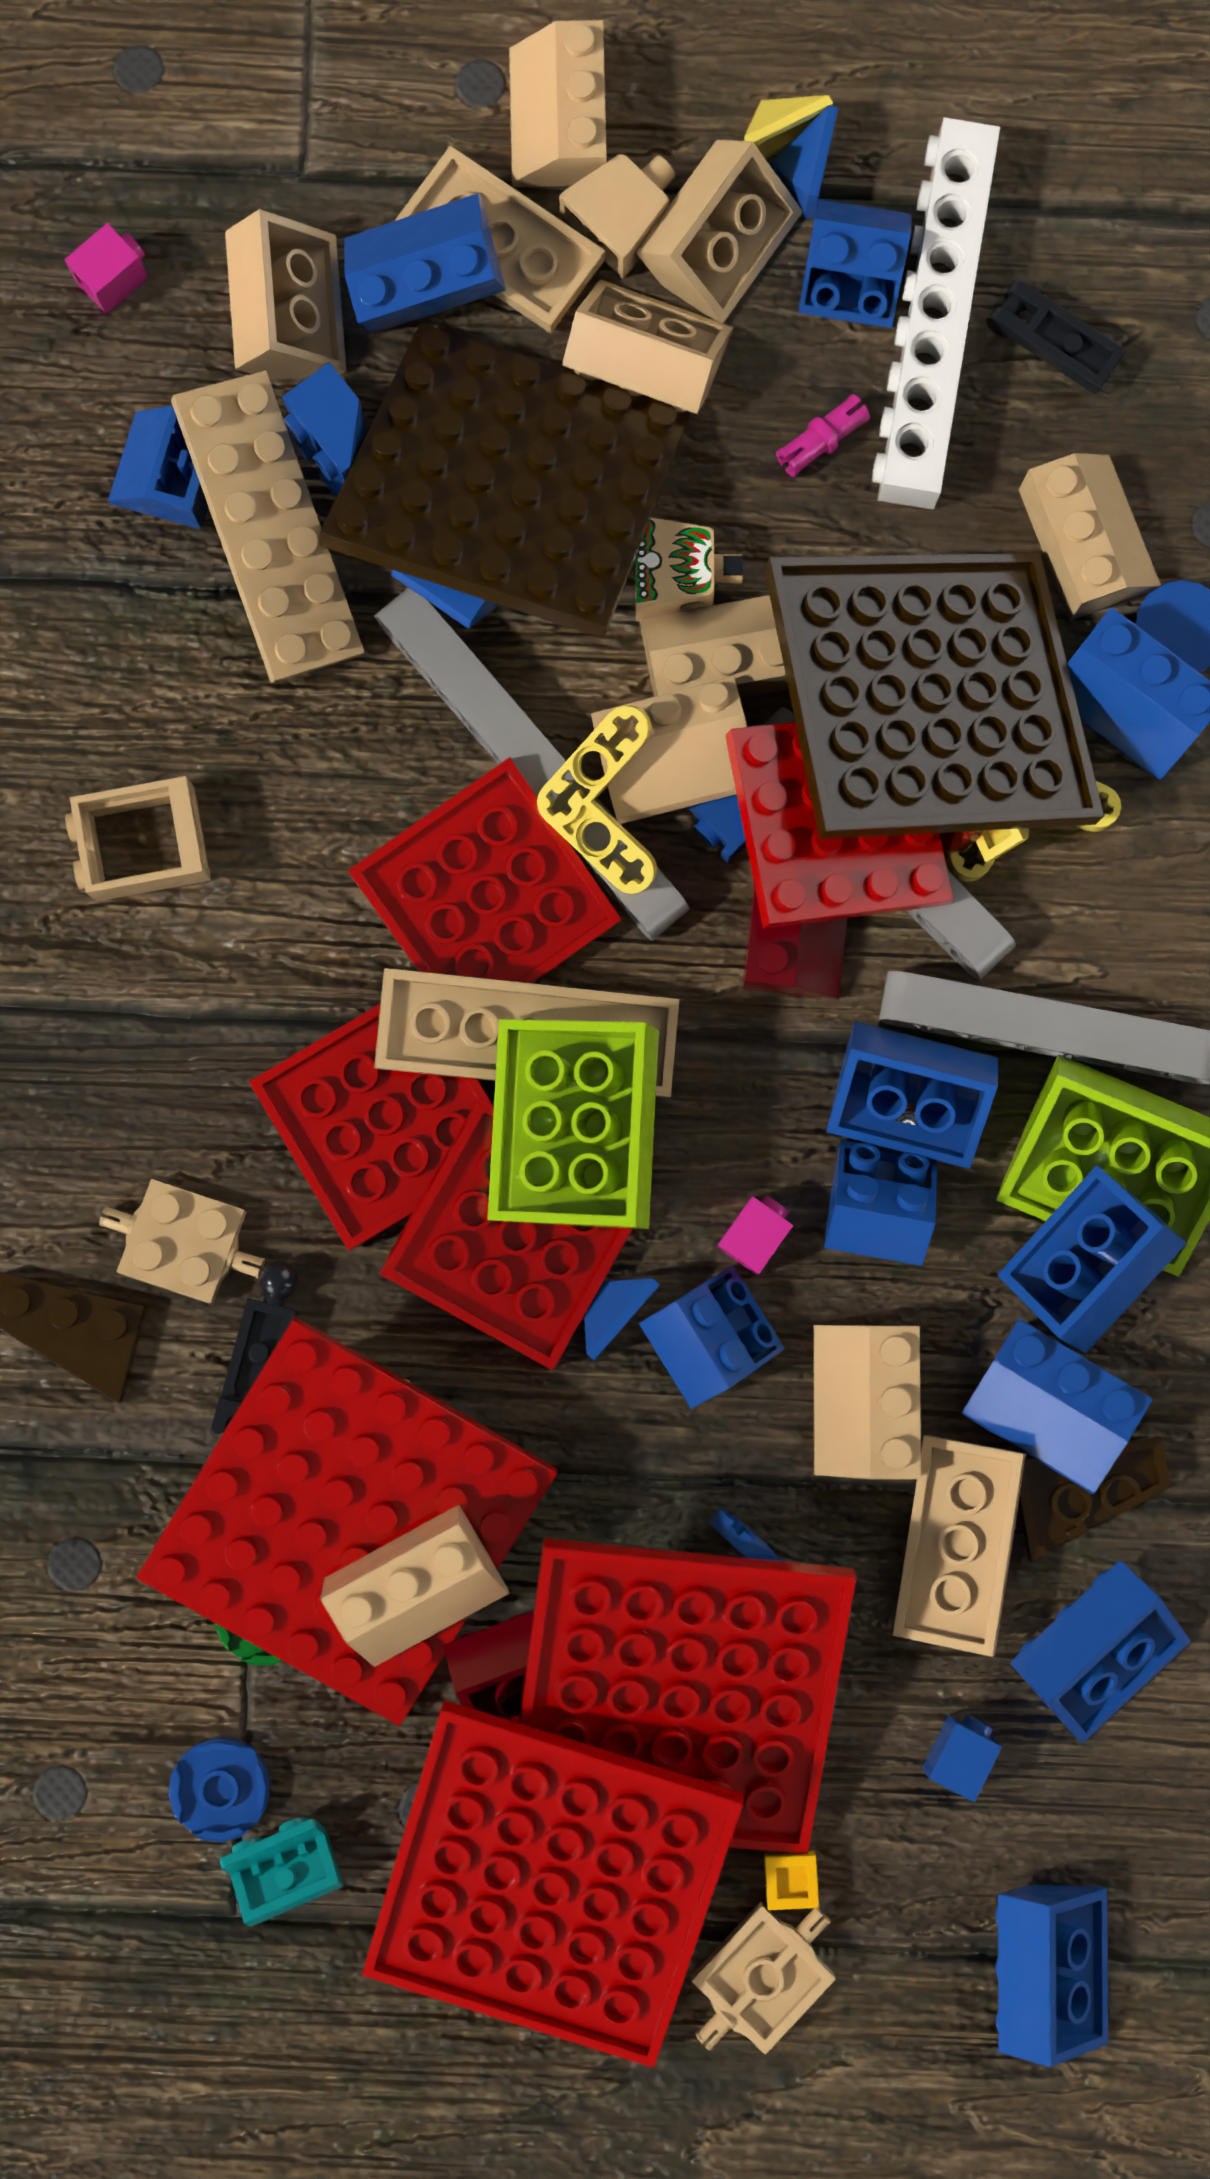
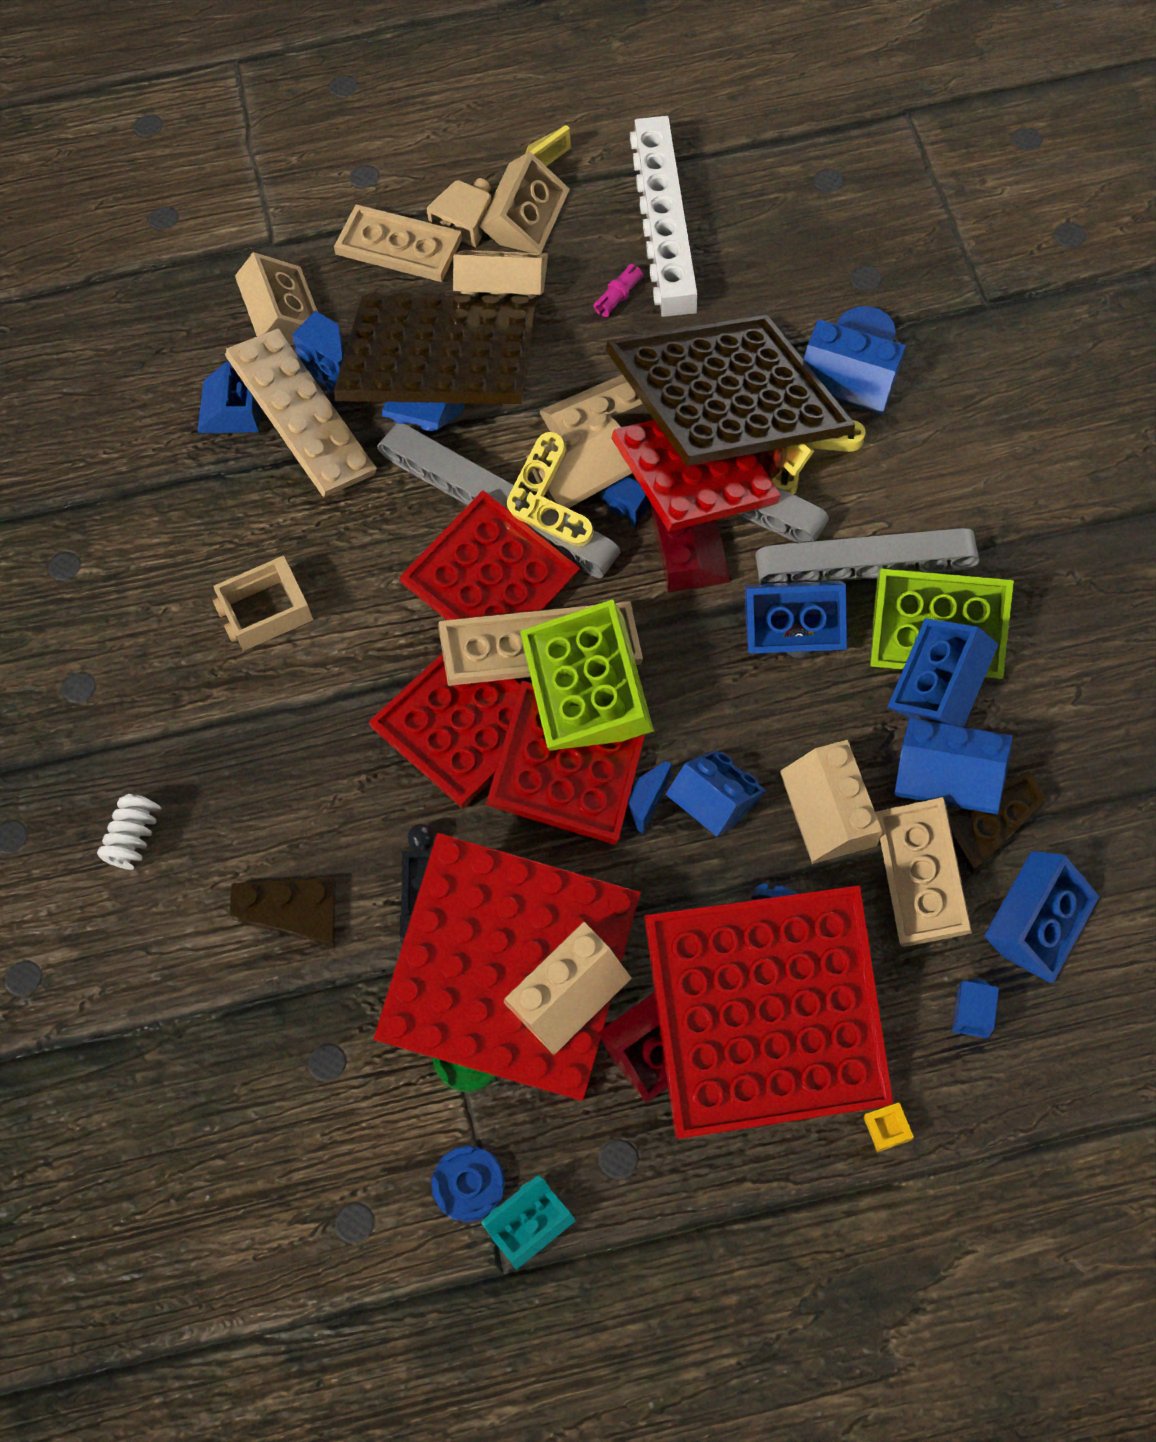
camera: 10 degrees left, 20 degrees down
(108, 267) = (168, 312): dark pink brick -> none
(182, 1241) = (349, 833): tan plate -> none
(422, 265) = (357, 263): blue slope -> none
(551, 1883) = (721, 1167): red plate -> none
(558, 104) = (412, 169): tan slope -> none
(680, 568) = (555, 375): torso -> none
(756, 1233) = (723, 723): dark pink brick -> none
(762, 1978) = (892, 1201): tan plate -> none
(804, 161) = (563, 161): blue slope -> none
(855, 263) = (608, 203): blue slope -> none
(882, 1203) = (798, 683): blue slope -> none
(1052, 1972) = (1090, 1135): blue slope -> none
(1056, 336) = (736, 209): black plate -> none
(1087, 533) = (788, 297): tan slope -> none

